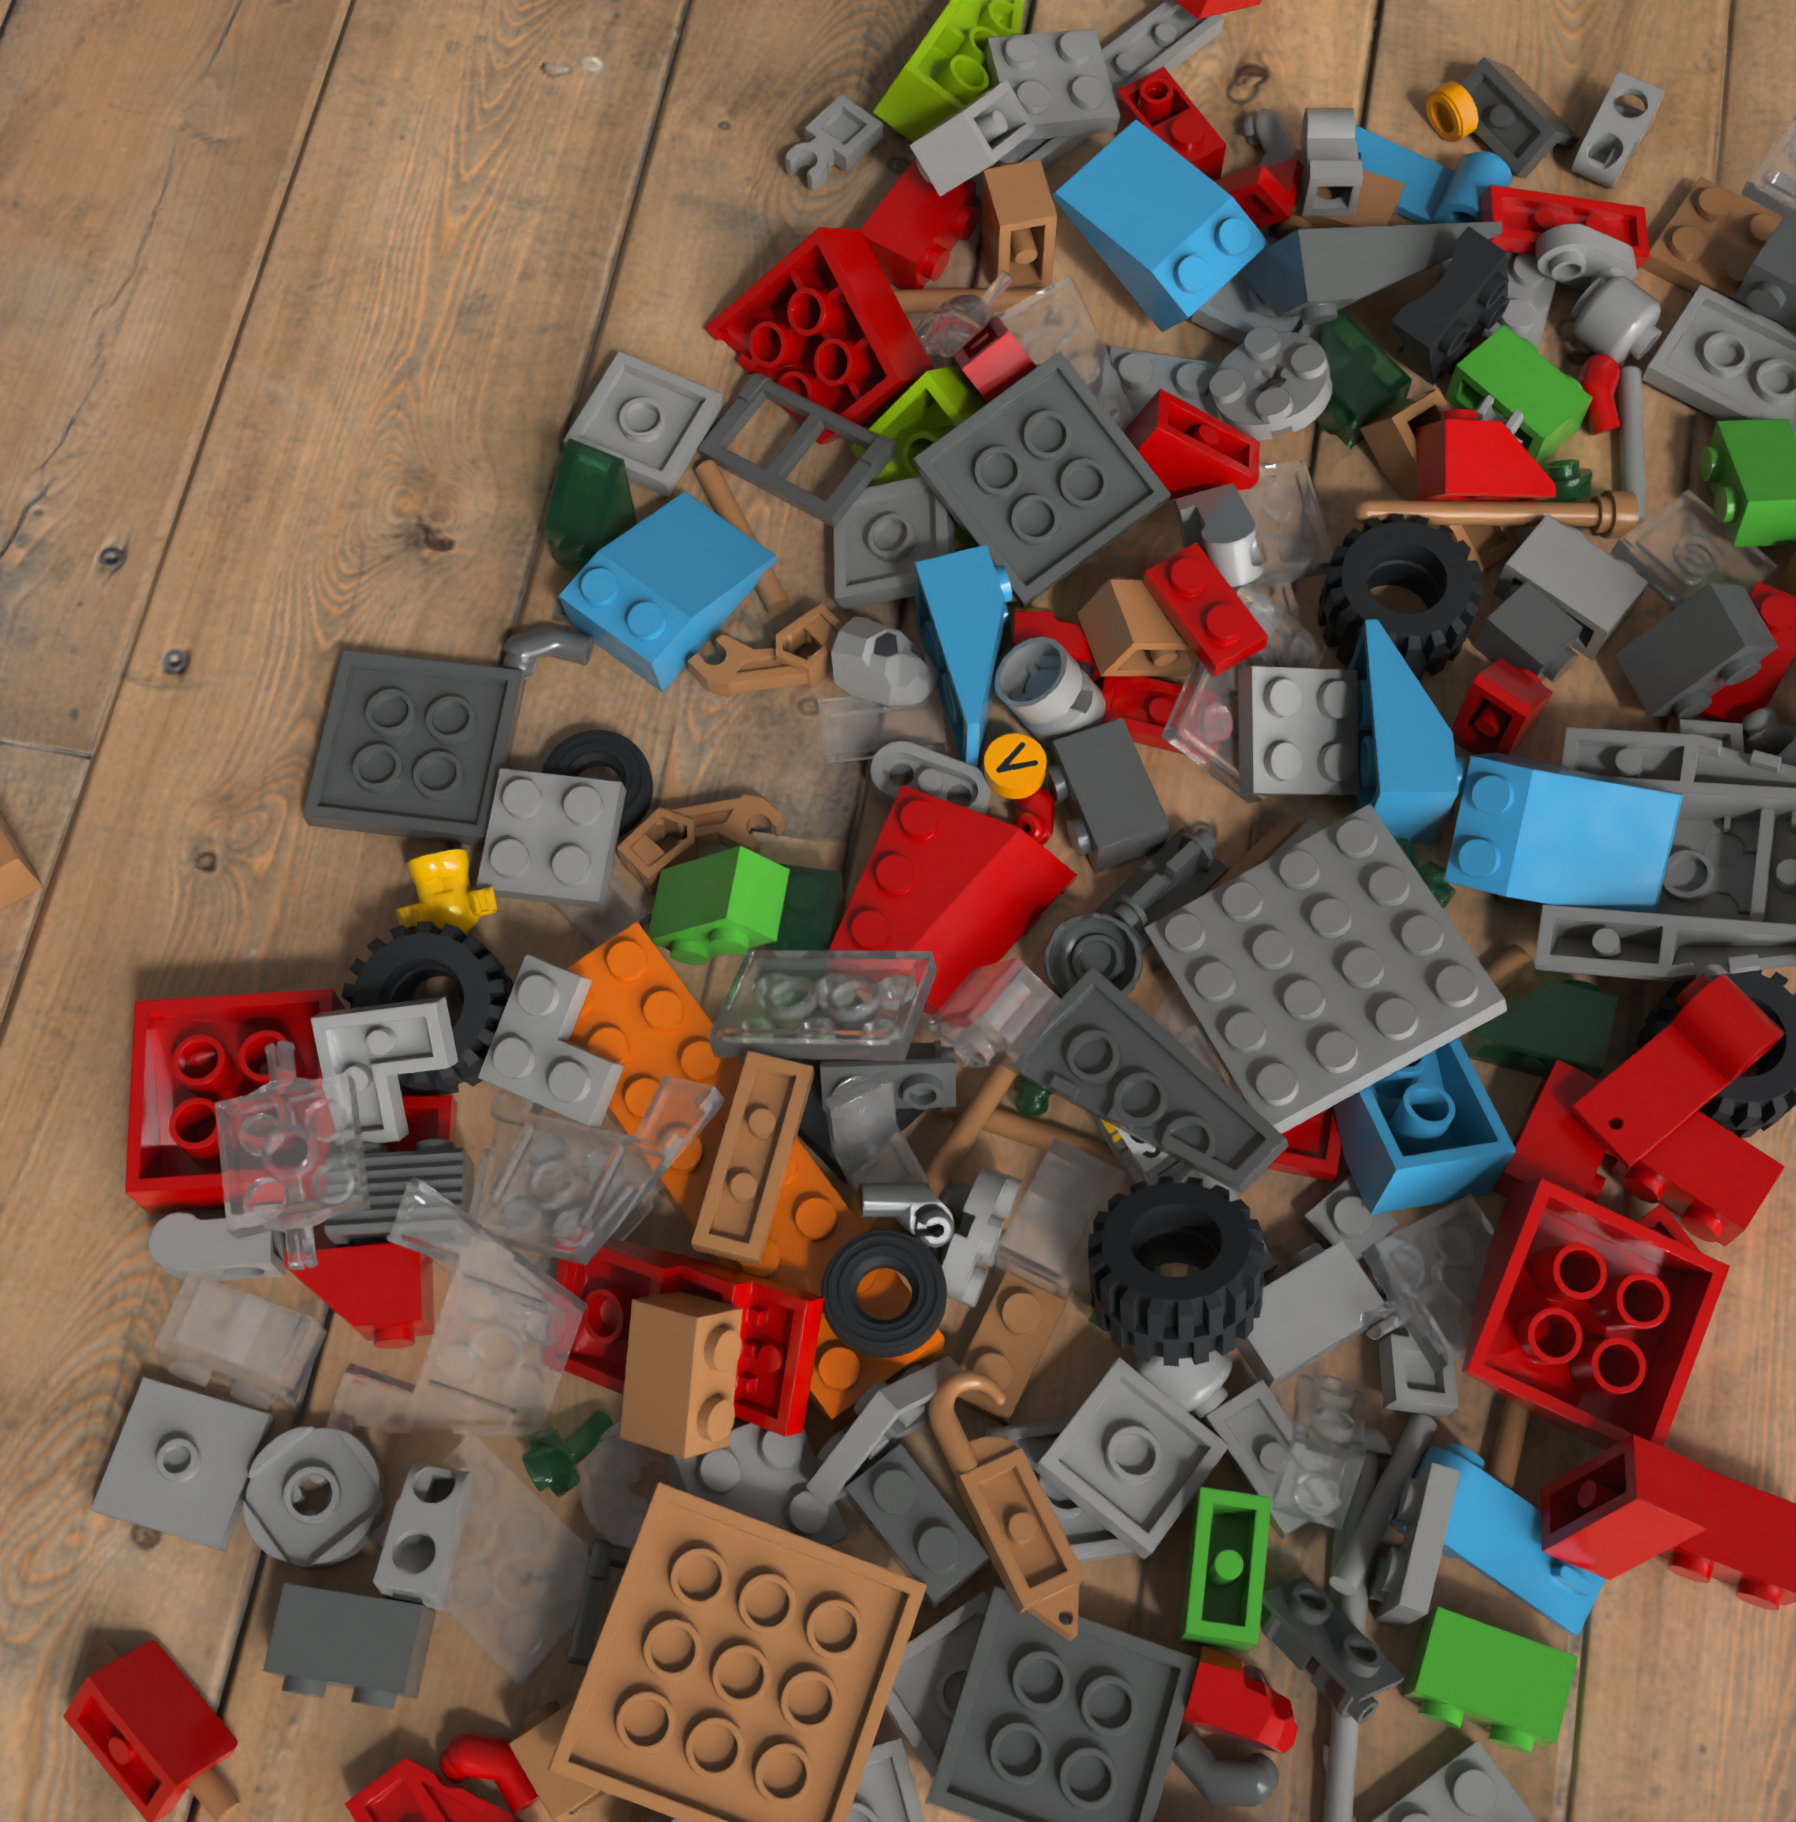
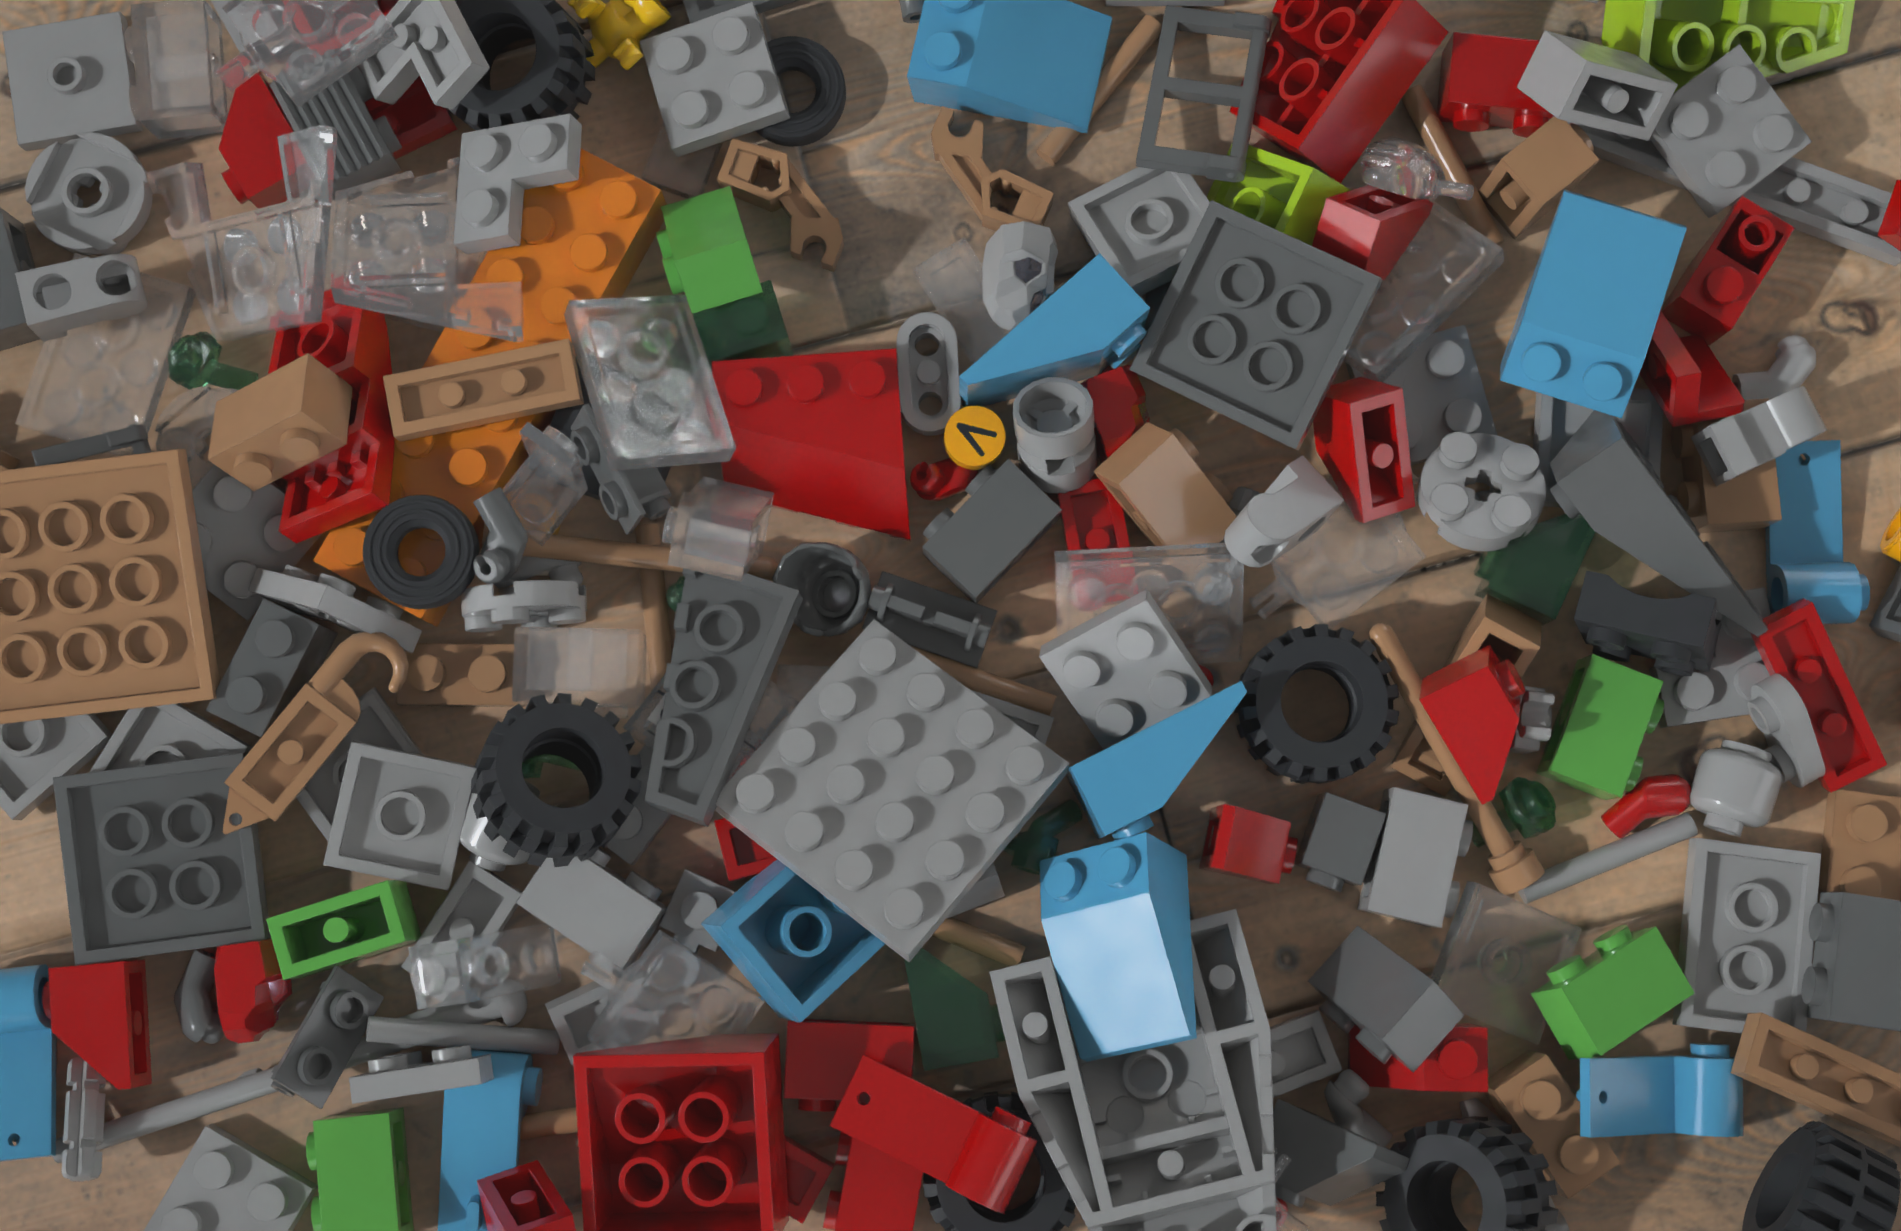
camera: 65 degrees right, 15 degrees up
(1205, 609) = (1187, 532): red plate -> none

